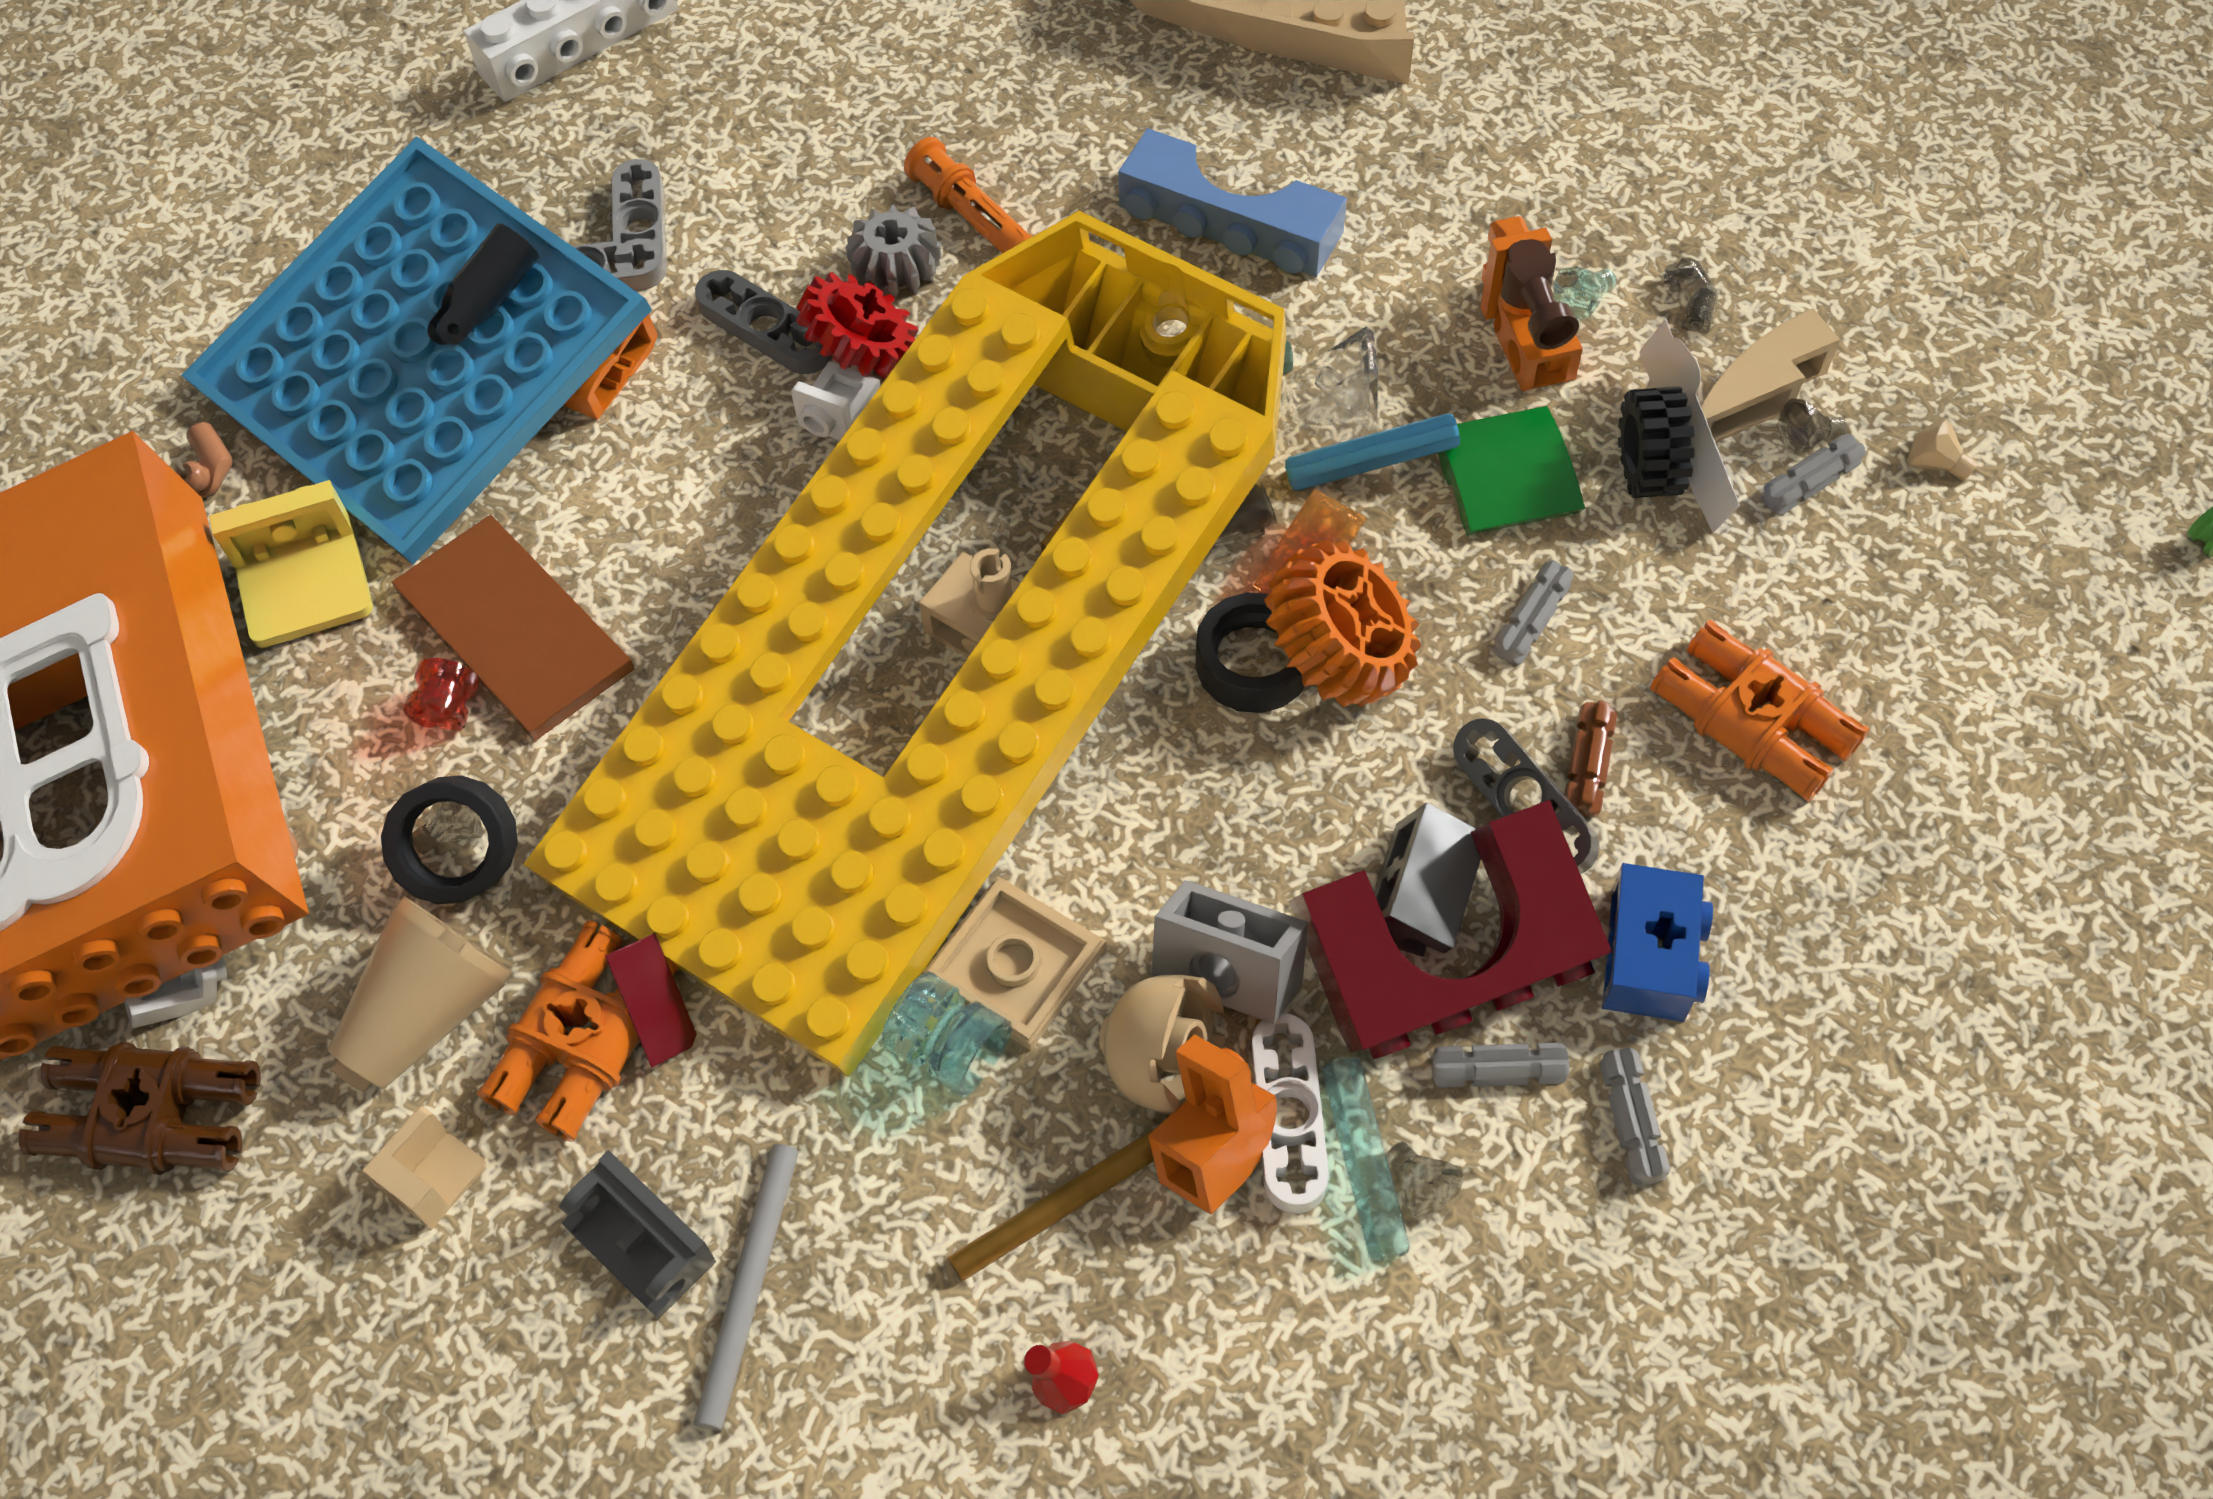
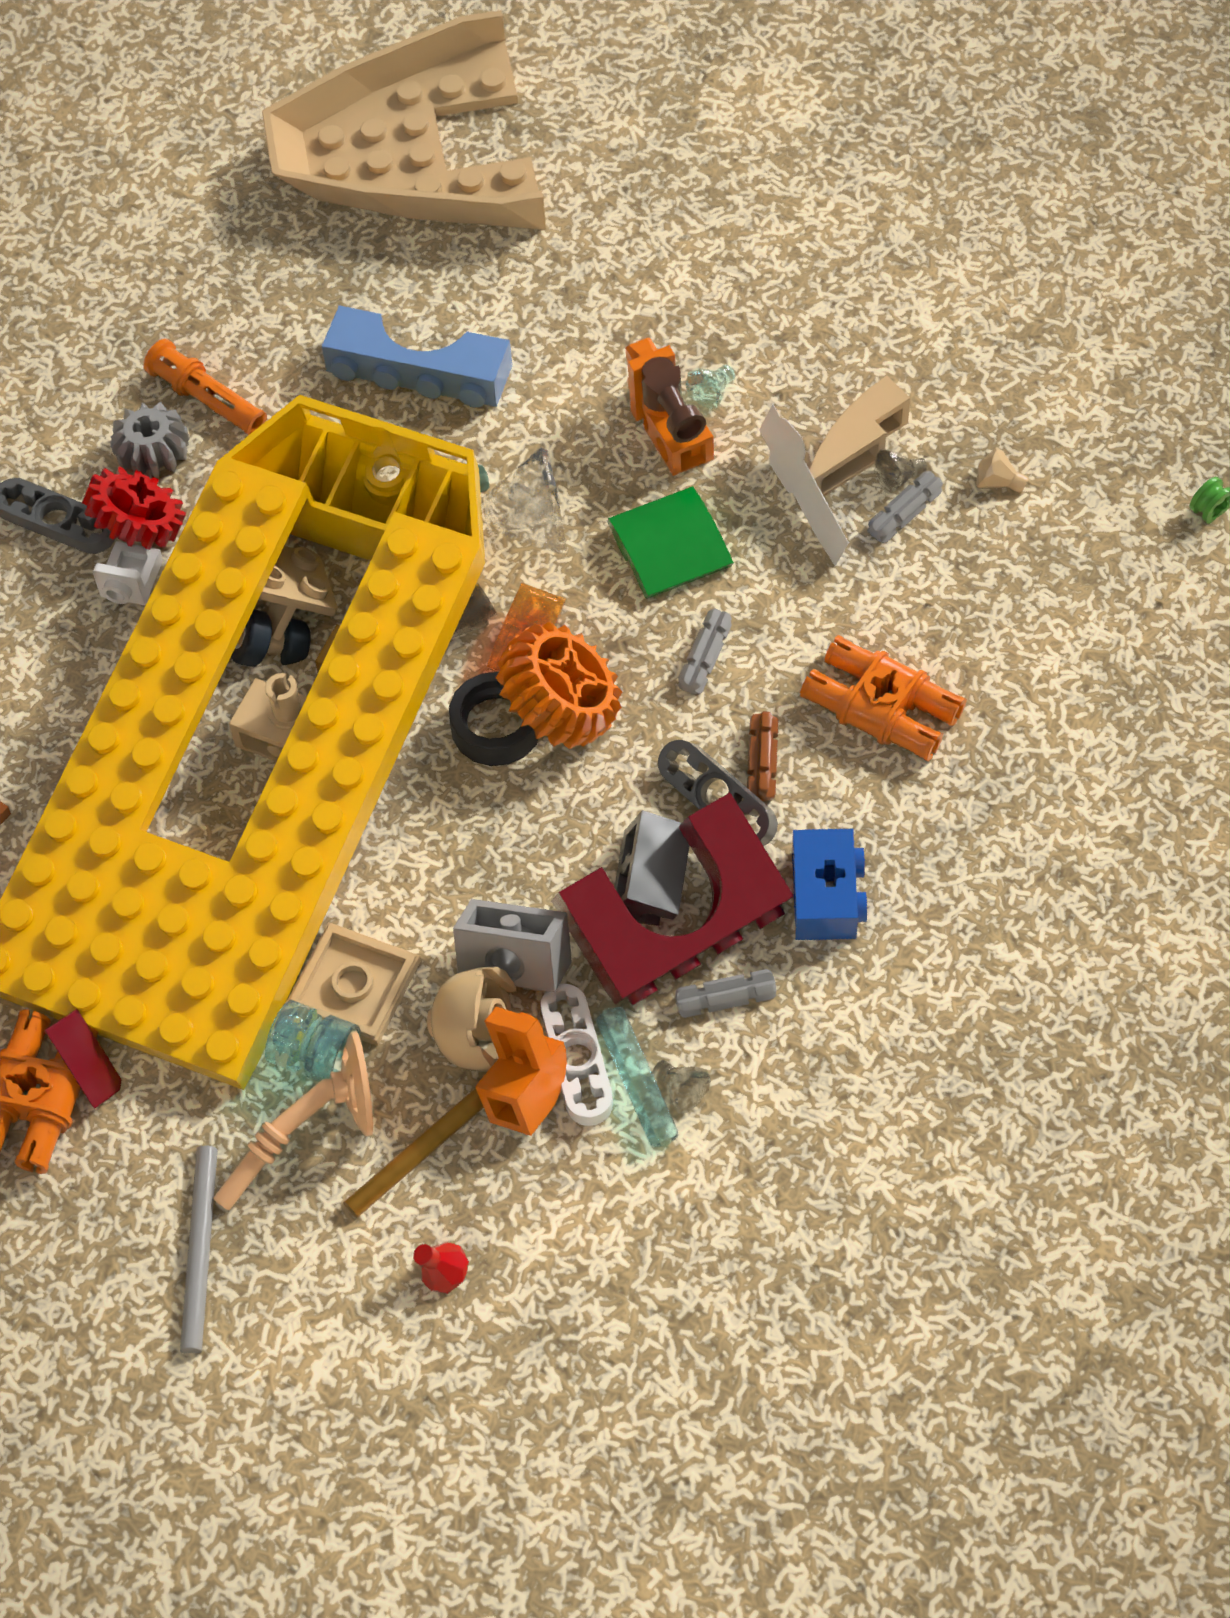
camera: 10 degrees left, 0 degrees up
(635, 1235) = (109, 1228): dark grey hinge -> none
(975, 1102) = (343, 1086): none -> light nougat dish
(1032, 442) = (294, 583): none -> tan plate
(1372, 452) = (562, 545): dark azure axle -> none
(1634, 1117) = (827, 1012): light grey axle -> none
(1656, 441) = (779, 502): black tyre -> none
(1701, 293) = (792, 361): clear smoke arm -> none

